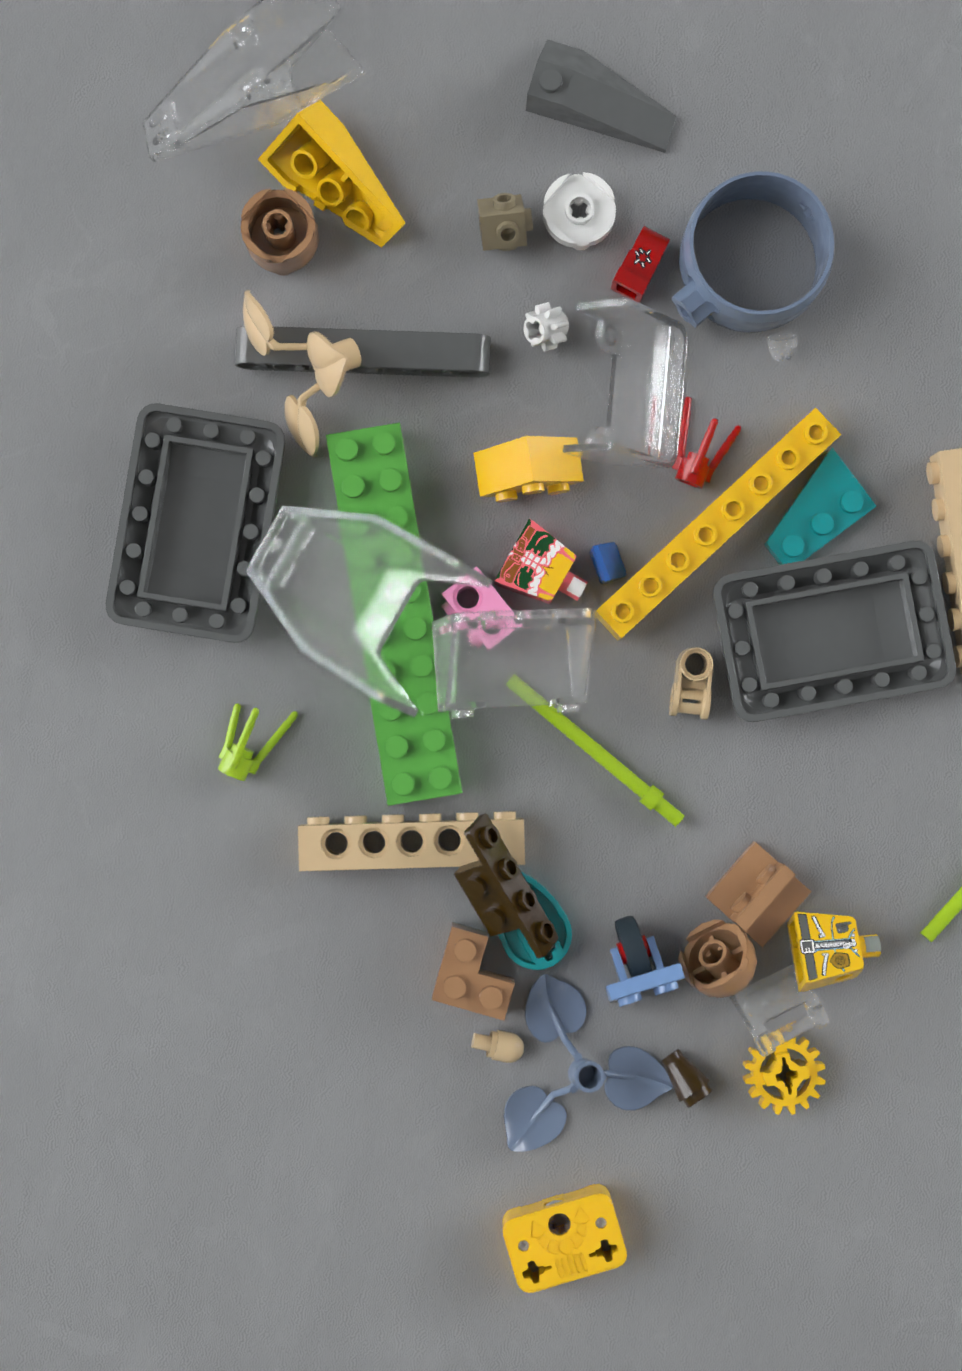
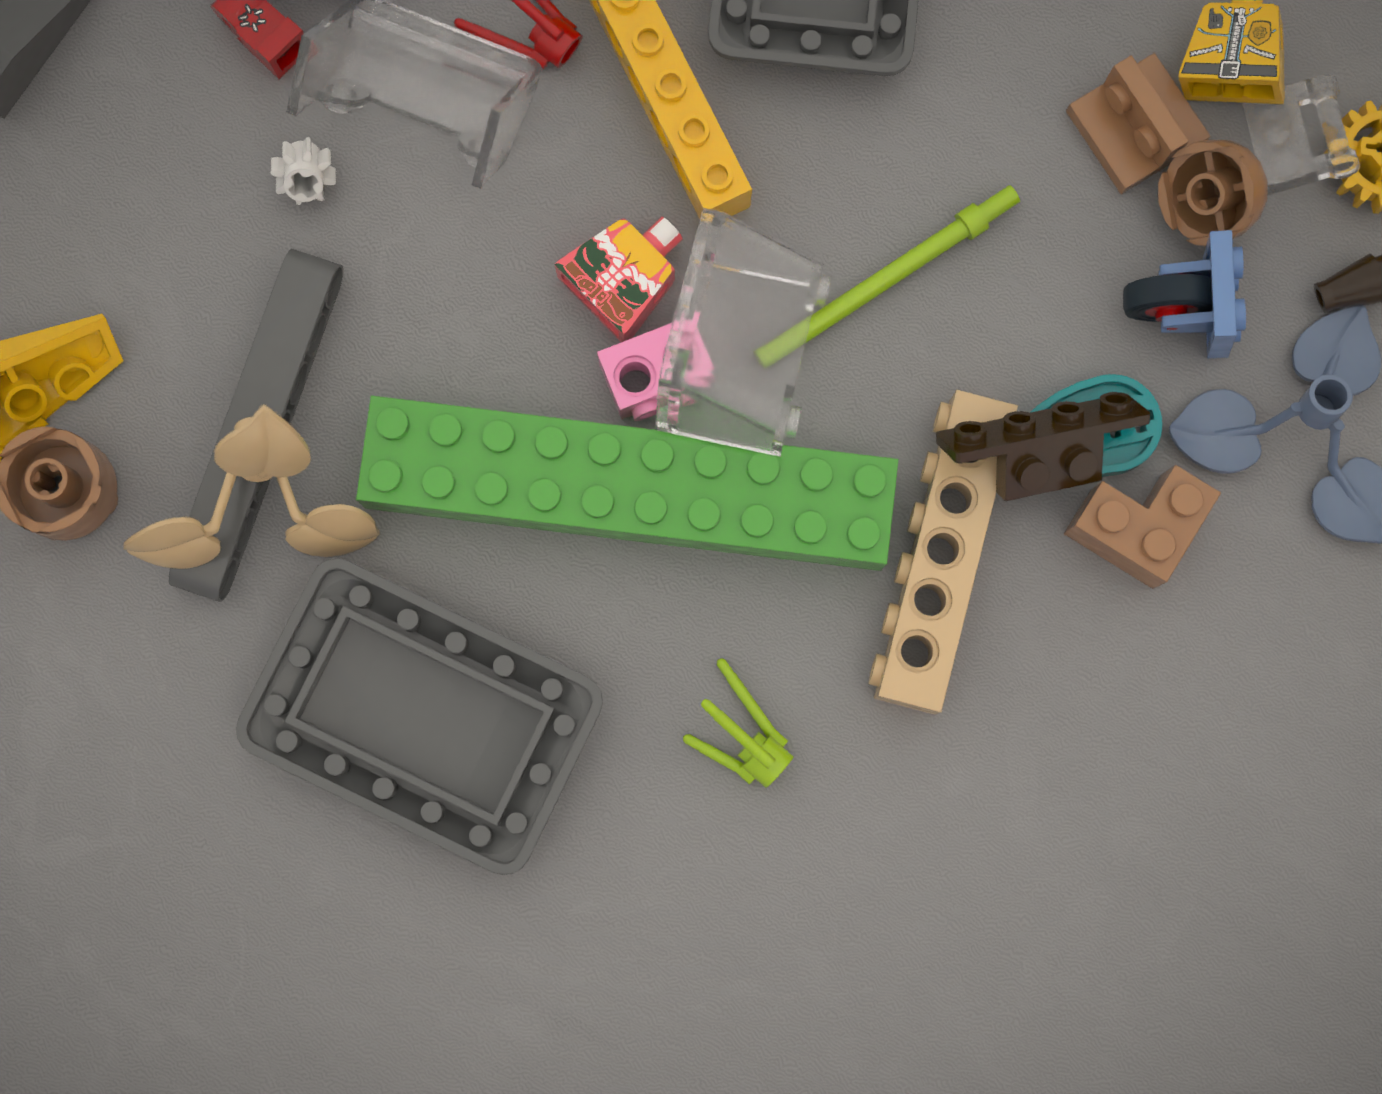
camera: 75 degrees left, 5 degrees down
(344, 584) = (569, 522): clear windscreen -> none
(499, 1045) = (1248, 517): tan cylinder -> none
(503, 222) = (144, 184): dark tan brick -> none
(527, 467) = (480, 247): yellow brick -> none
(579, 189) = (160, 114): white plate -> none
(607, 562) = (643, 189): blue slope -> none
(692, 686) = (840, 125): tan piece -> none

